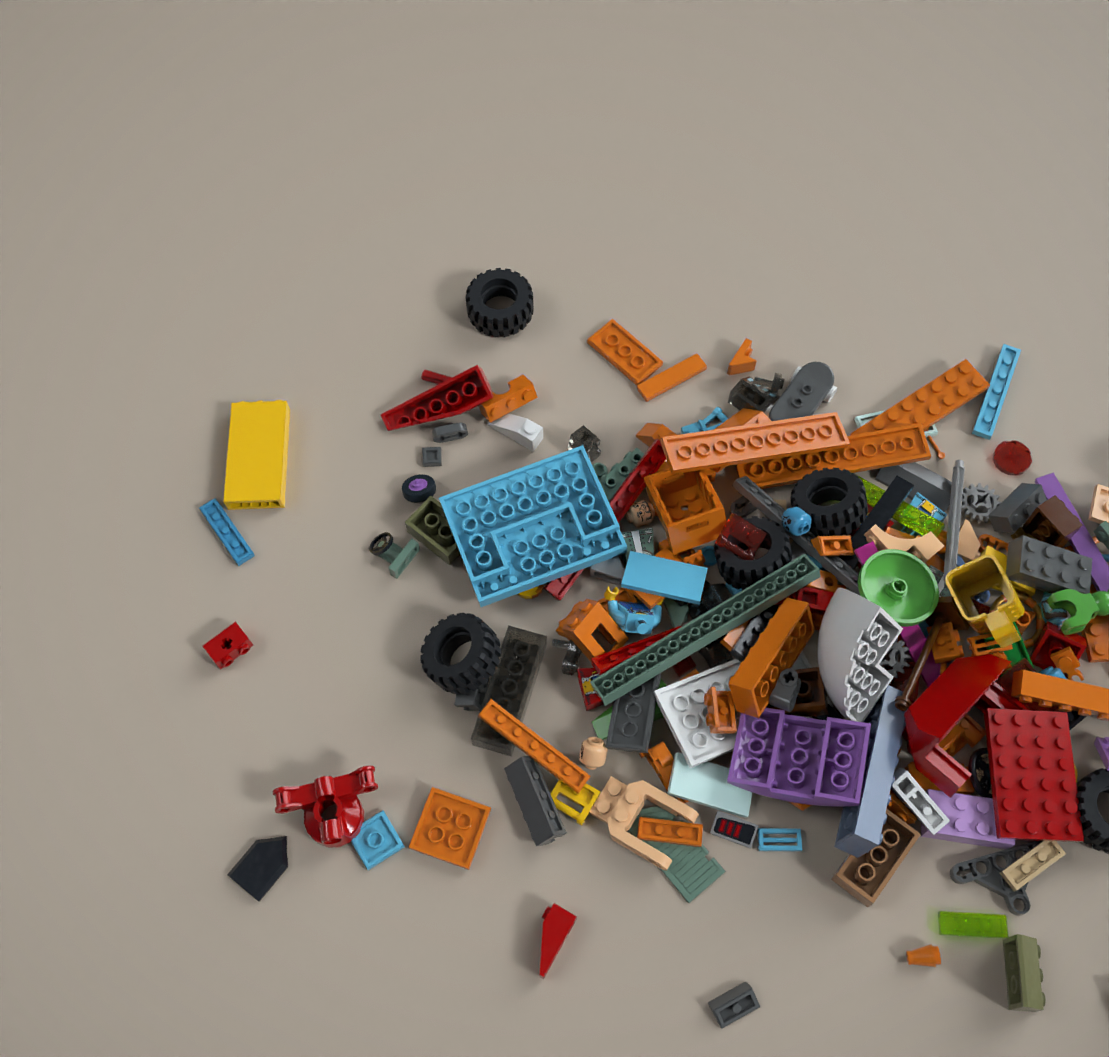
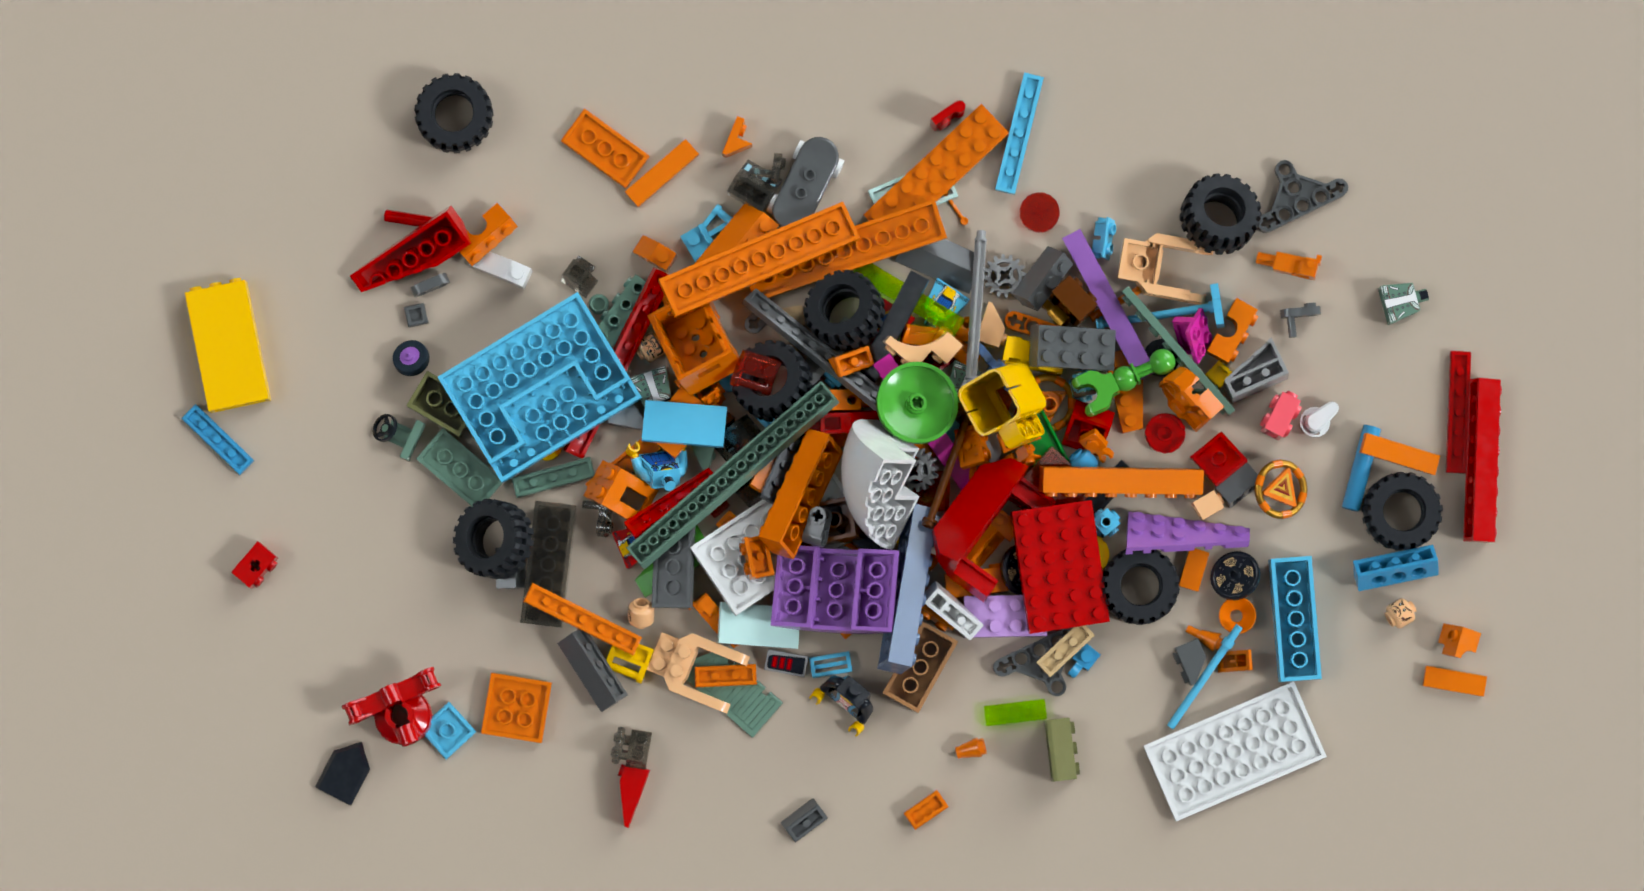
camera: 10 degrees left, 20 degrees up
(441, 588) = (459, 468): none -> sand green plate
(528, 613) = (553, 477): none -> sand green tile
(568, 890) = (638, 748): none -> clear smoke plate
(796, 521) = (810, 343): dark azure head -> none
(799, 874) = (848, 695): none -> black torso
(869, 1017) = (926, 809): none -> orange plate
(931, 363) = (943, 118): none -> red plate
(1049, 880) = (1084, 659): none -> dark azure plate
(1075, 479) = (1106, 229): none -> medium azure hinge
(1080, 741) = (1108, 530): none -> medium azure brick

